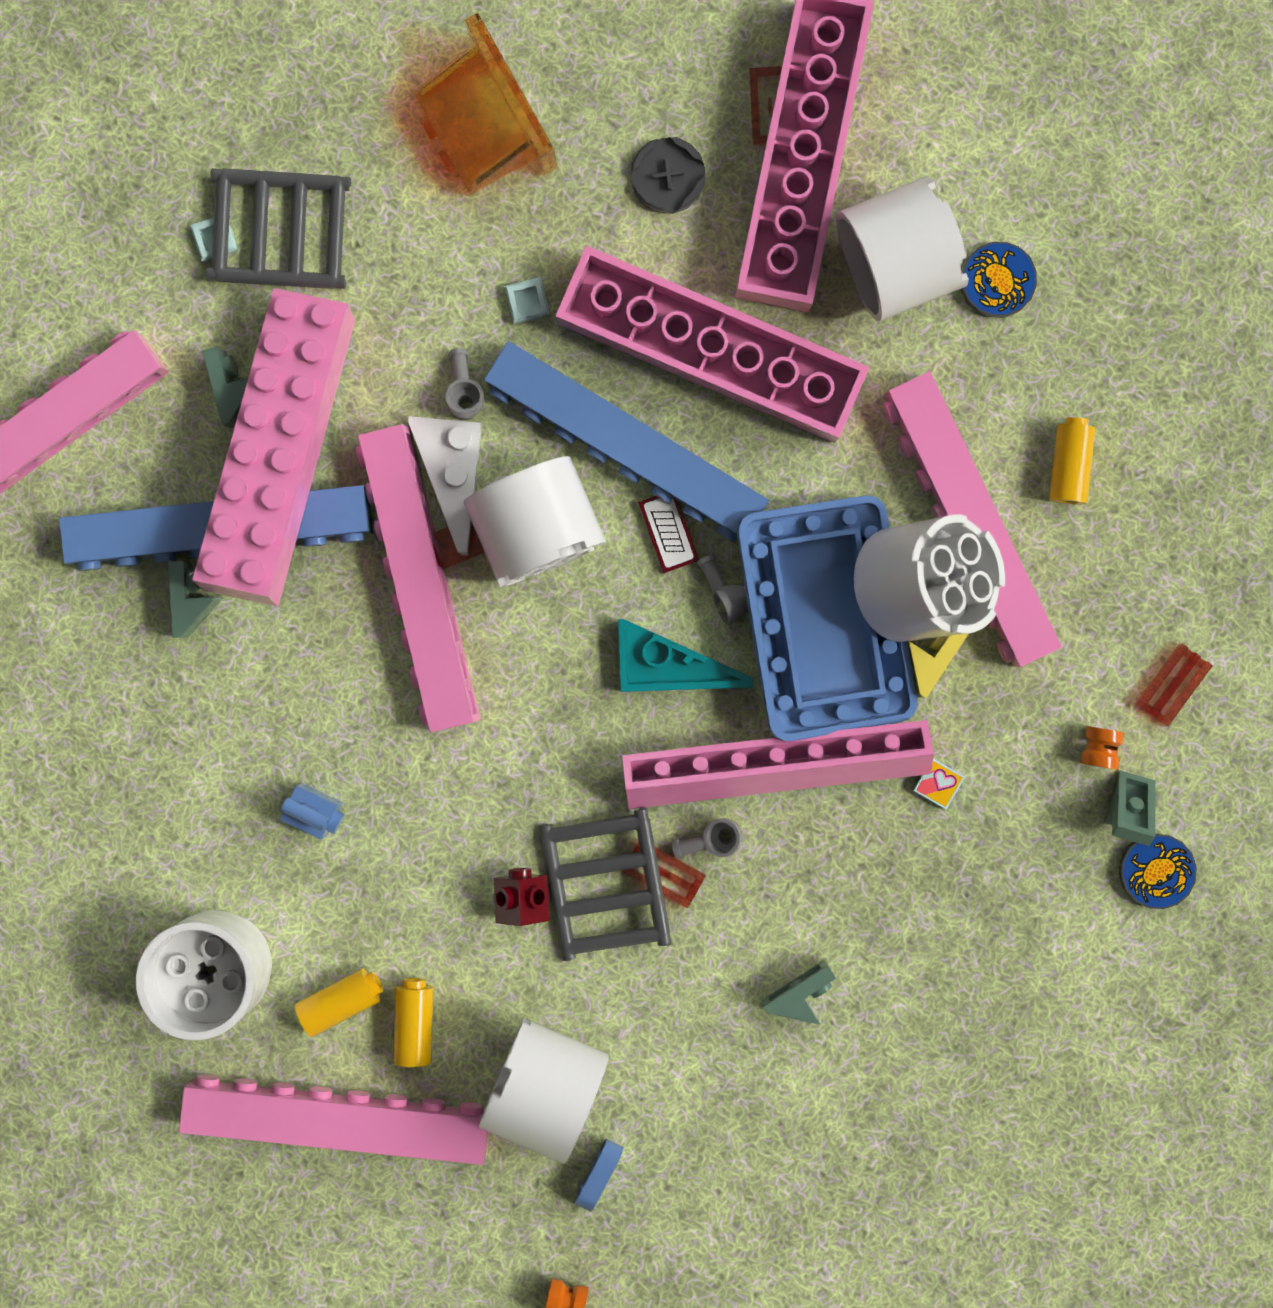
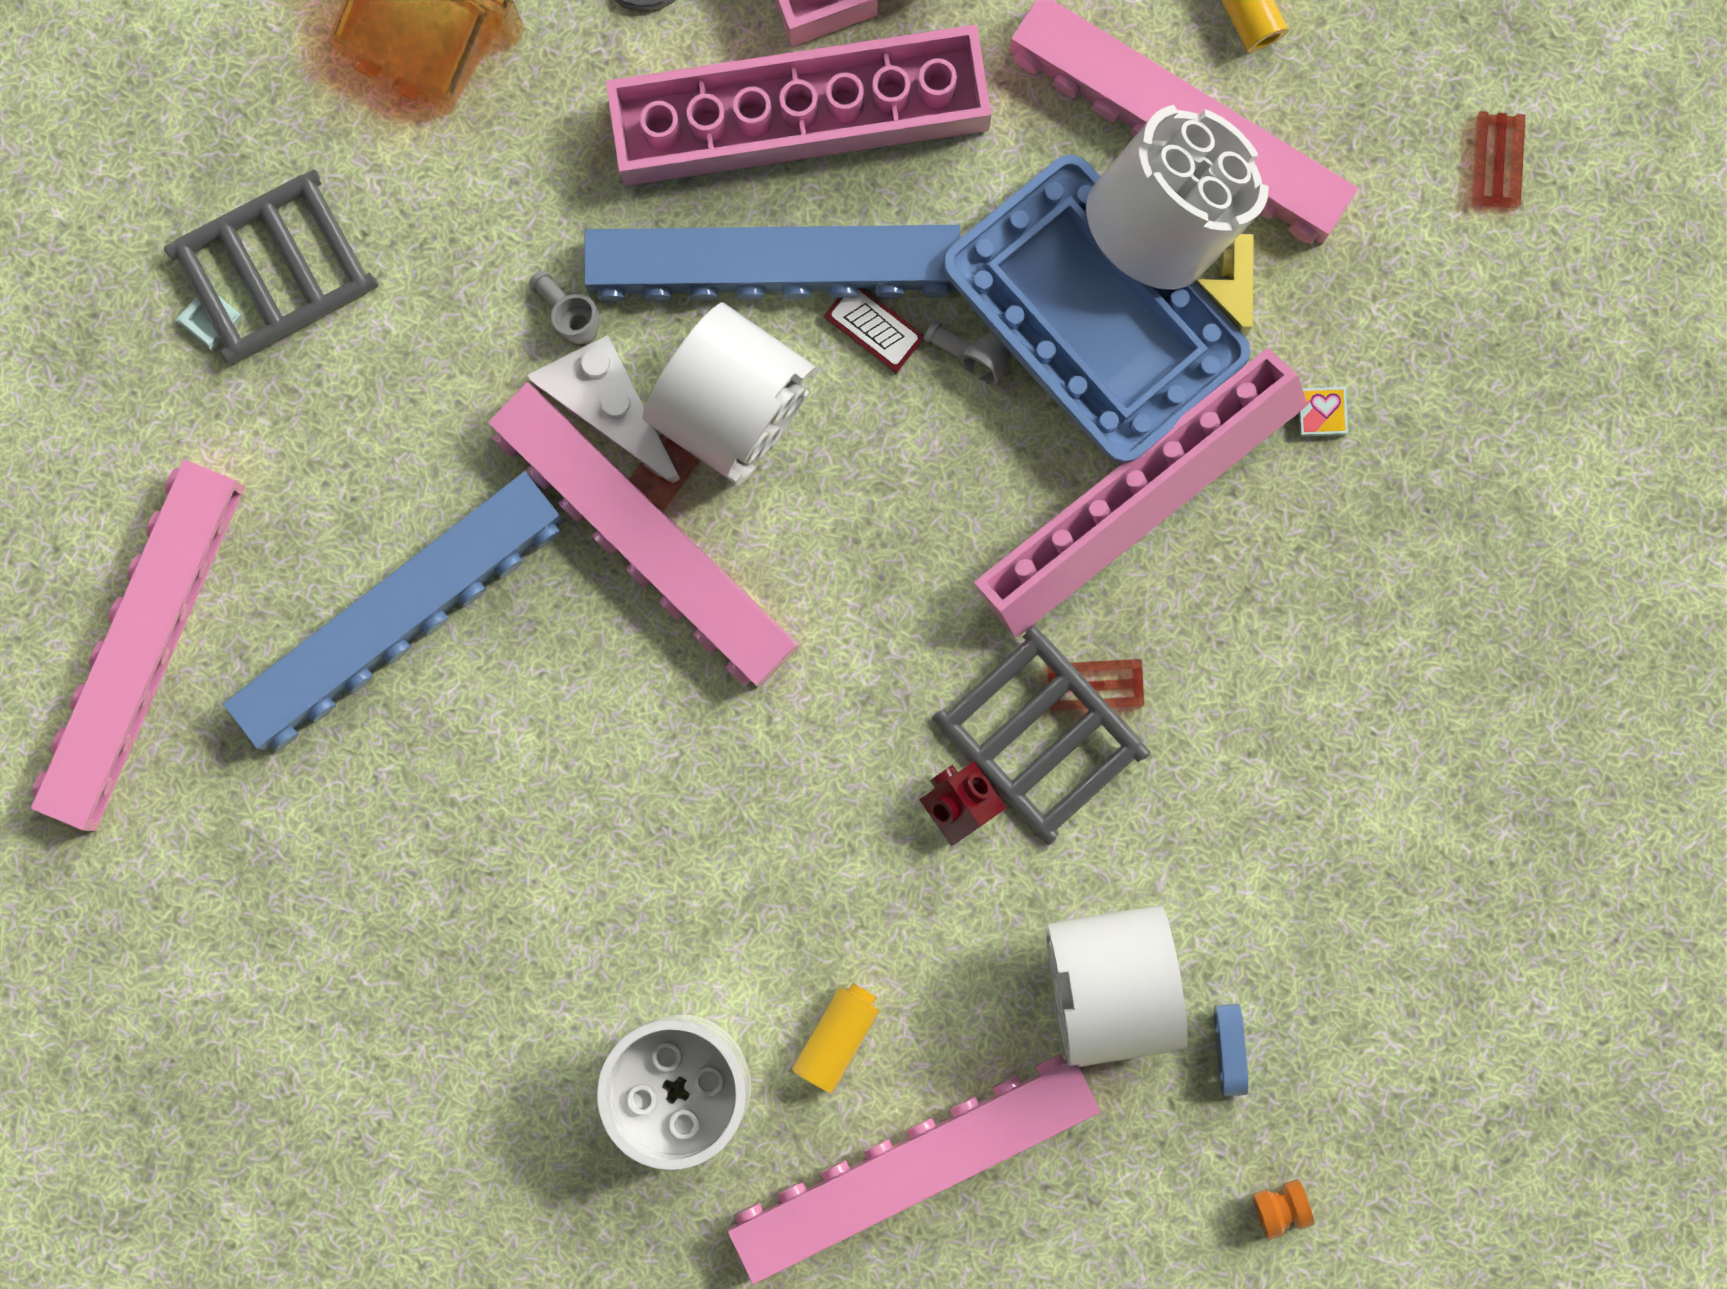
camera: 30 degrees left, 5 degrees down
(186, 610) = (419, 719): sand green slope -> none
(227, 392) = (329, 466): sand green slope -> none
(274, 448) = (409, 487): bright pink brick -> none
(312, 811) = (683, 850): medium blue brick -> none
(413, 1023) = (930, 1010): yellow brick -> none
(527, 300) = (578, 181): light aqua tile -> none
(660, 664) = (953, 468): teal wing -> none
(711, 840) = (1123, 616): light grey bar -> none
(790, 999) = (1315, 730): sand green slope -> none
(1102, 747) = (1467, 267): orange wheel -> none
(1132, 808) = (1539, 310): sand green slope -> none
(1158, 873) = (1608, 360): tile -> none

